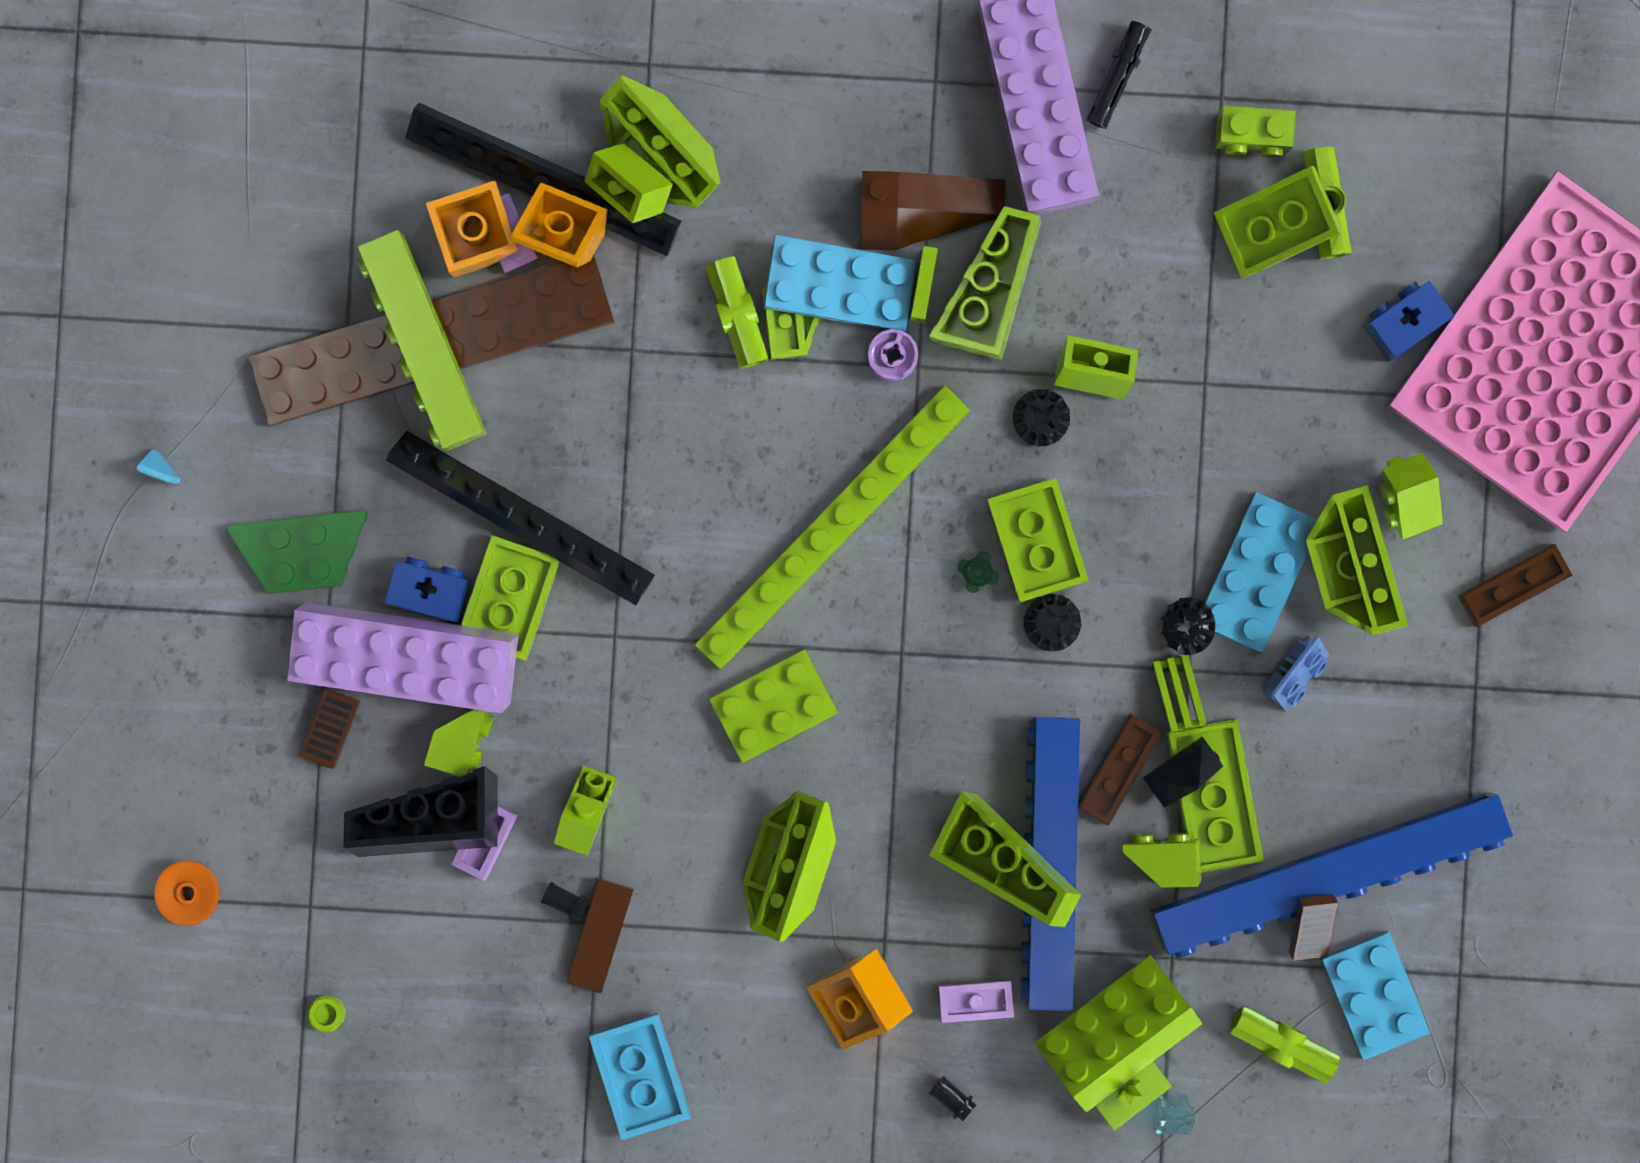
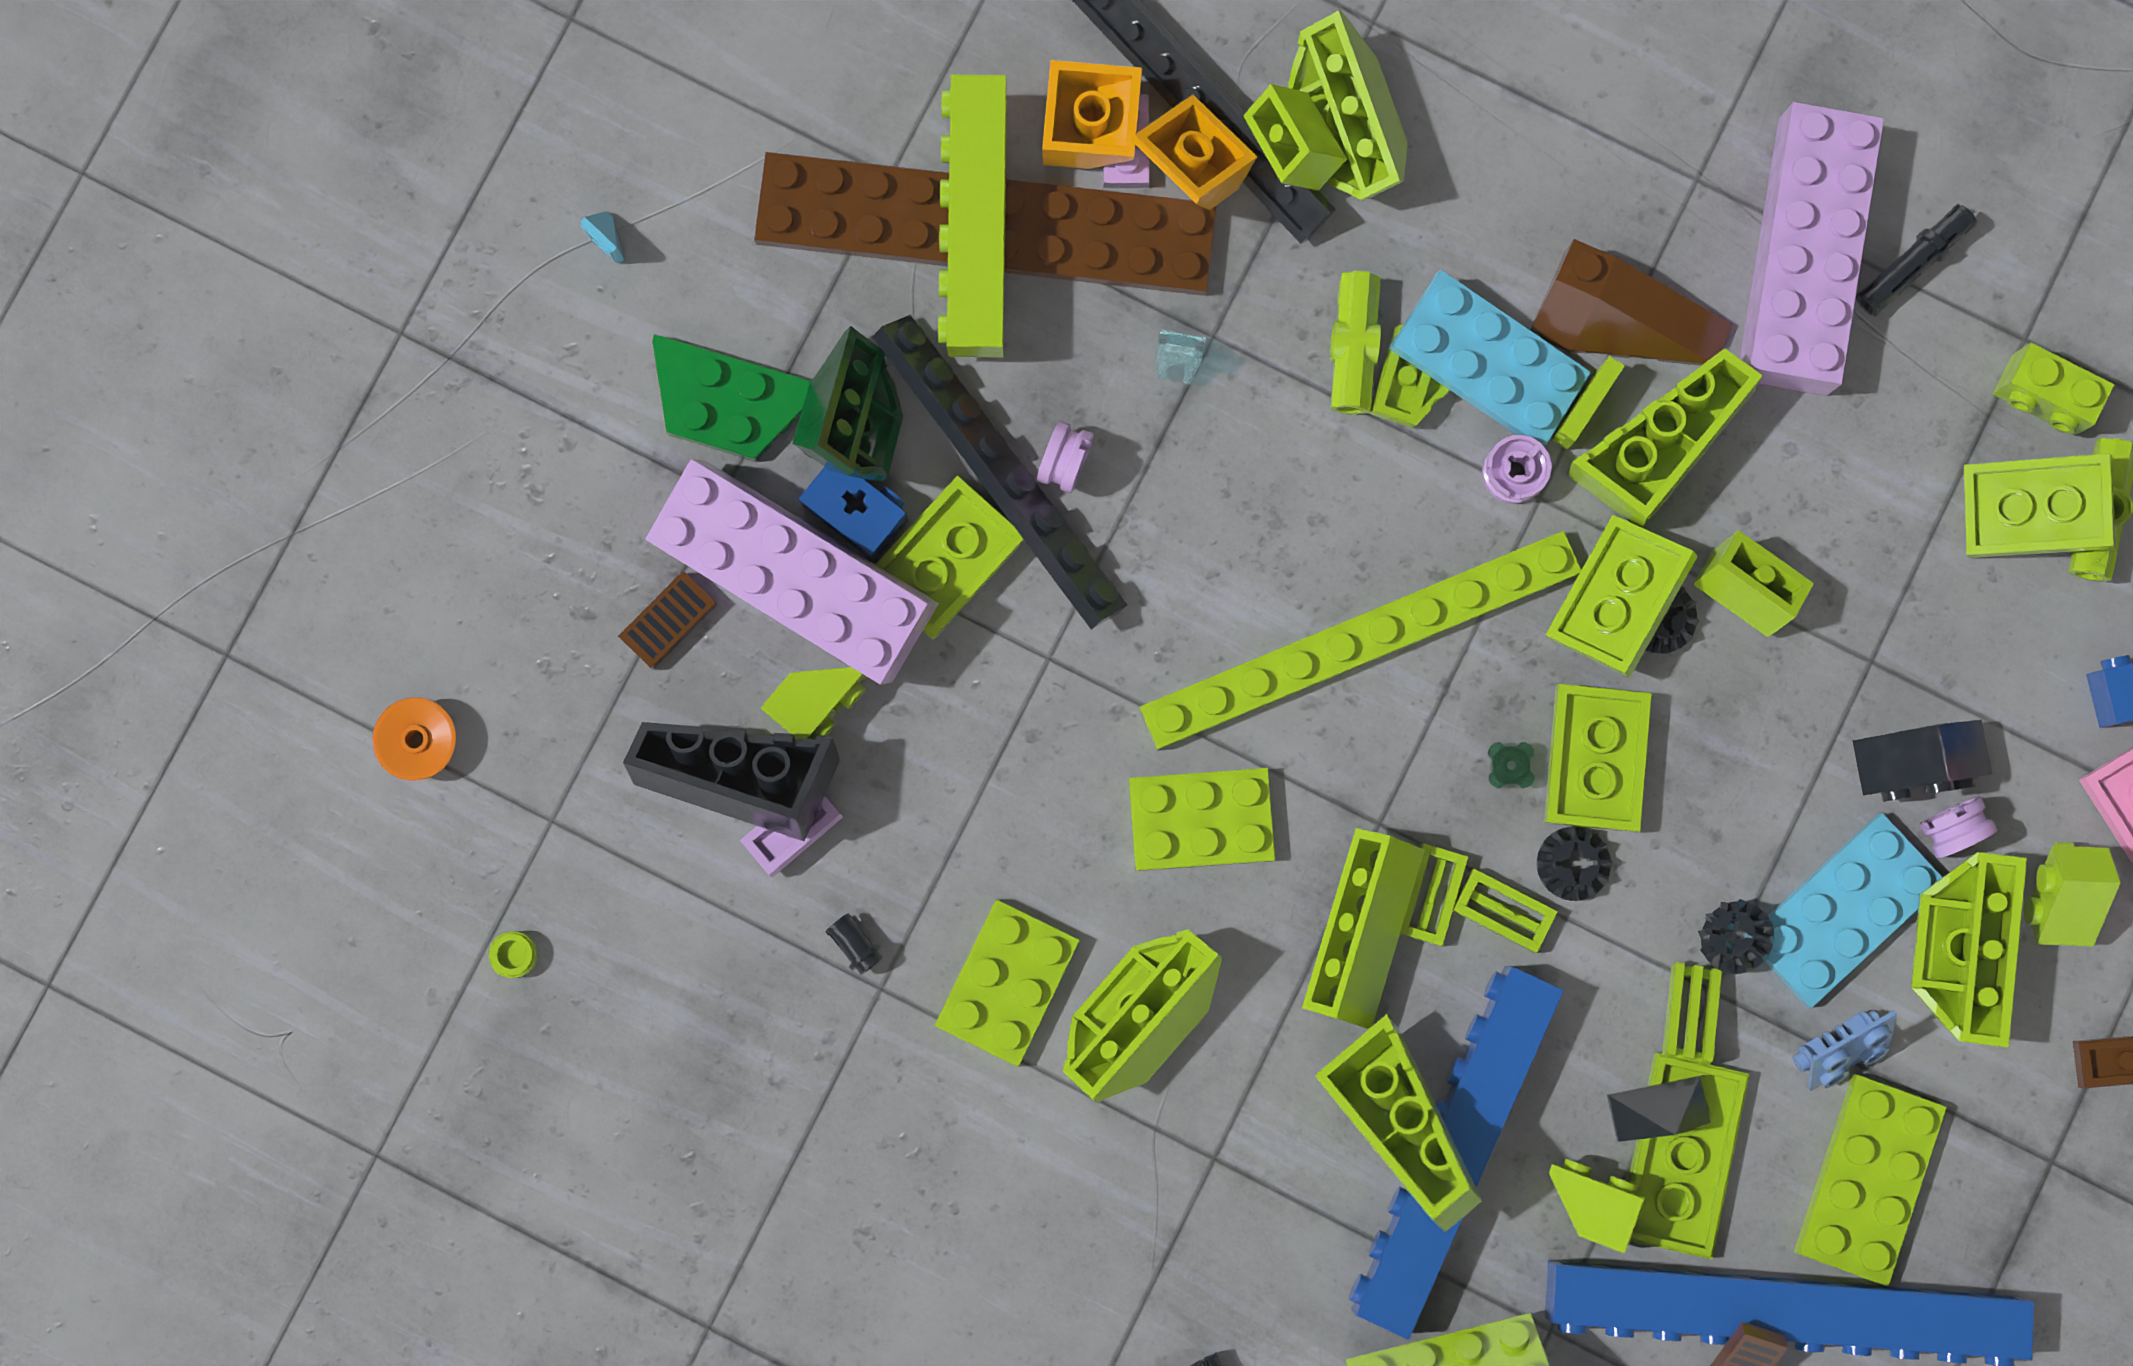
camera: 15 degrees right, 5 degrees down
(395, 523) = (851, 411): none -> dark green wedge
(563, 488) = (1065, 457): none -> lavender wheel
(584, 810) = (924, 845): lime slope -> none
(600, 935) = (877, 1003): reddish brown tile -> none
(613, 373) = (1179, 350): none -> clear light blue tile
(640, 1076) = (852, 1193): medium azure plate -> none
(685, 881) = (1006, 983): none -> lime plate
(860, 999) = (1155, 1215): light orange slope -> none
(920, 736) = (1363, 928): none -> lime brick
(956, 658) = (1449, 900): none -> lime tile
(976, 1001) = (1294, 1278): lavender plate -> none
(986, 675) = (1540, 930): none -> lime tile
(1005, 417) = (1621, 595): none -> lime plate
(1119, 769) = (1581, 1073): reddish brown tile -> none
(1270, 441) = (1929, 756): none -> black brick
(1313, 480) = (1958, 827): none -> lavender wheel
(1352, 756) = (1870, 1179): none -> lime plate

